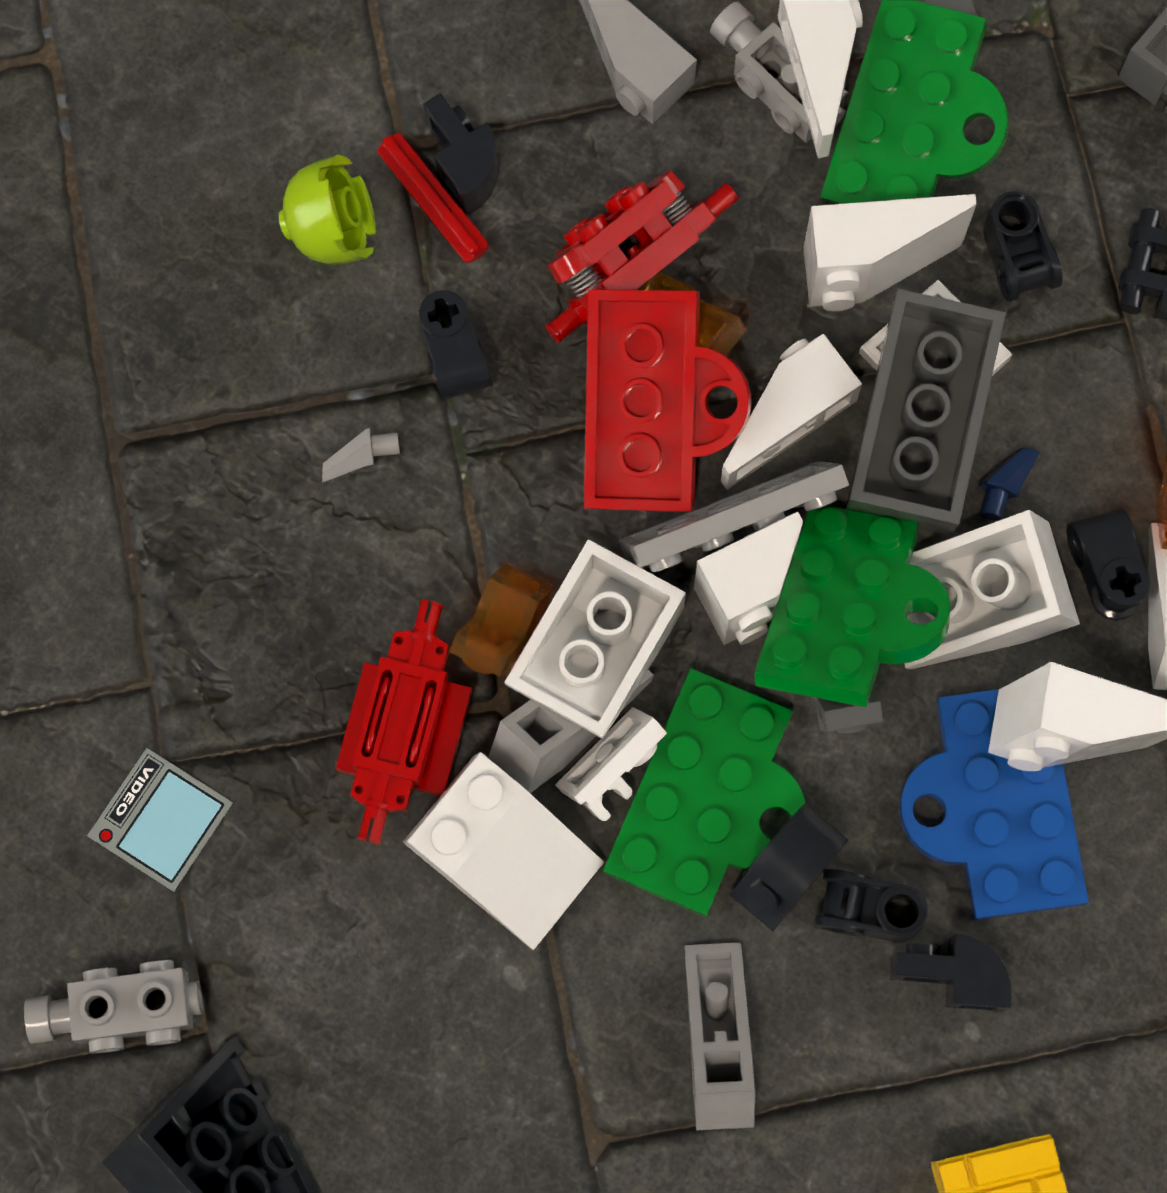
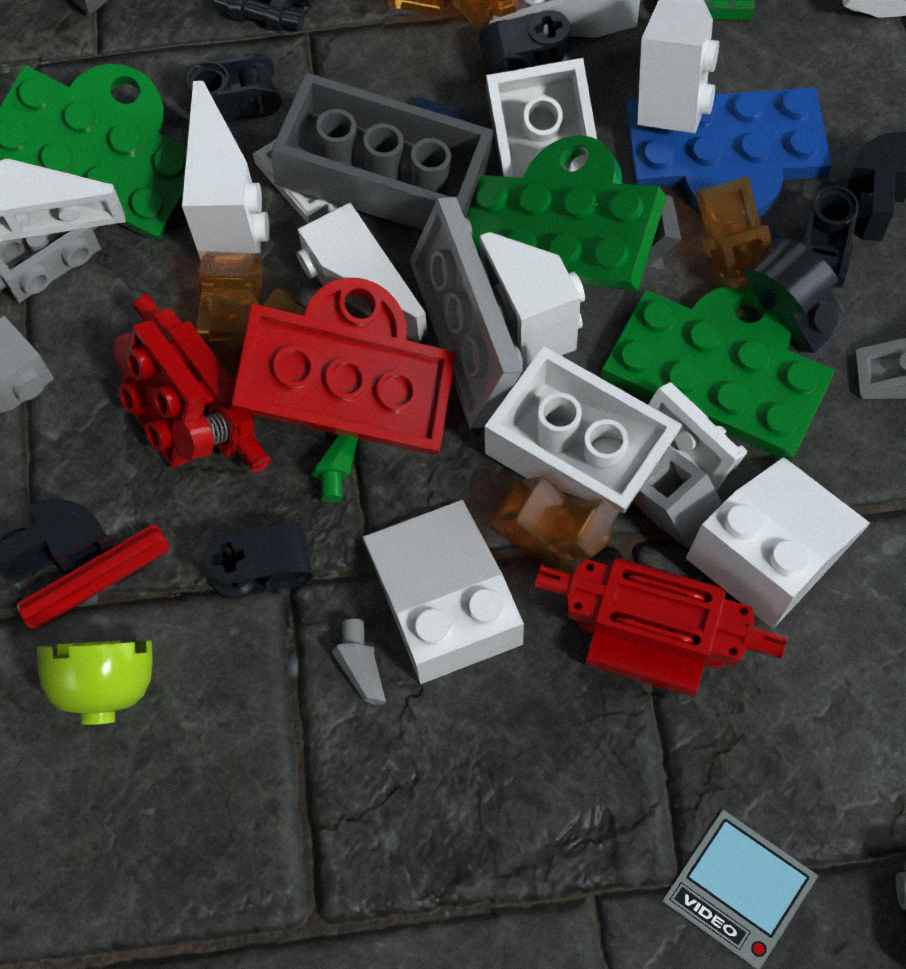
camera: 85 degrees left, 10 degrees down
(435, 521) = (445, 591): none -> white slope
(562, 405) = (335, 467): none -> green bar
(760, 277) = (228, 289): none -> clear orange brick
(870, 798) = (731, 229): none -> clear orange brick

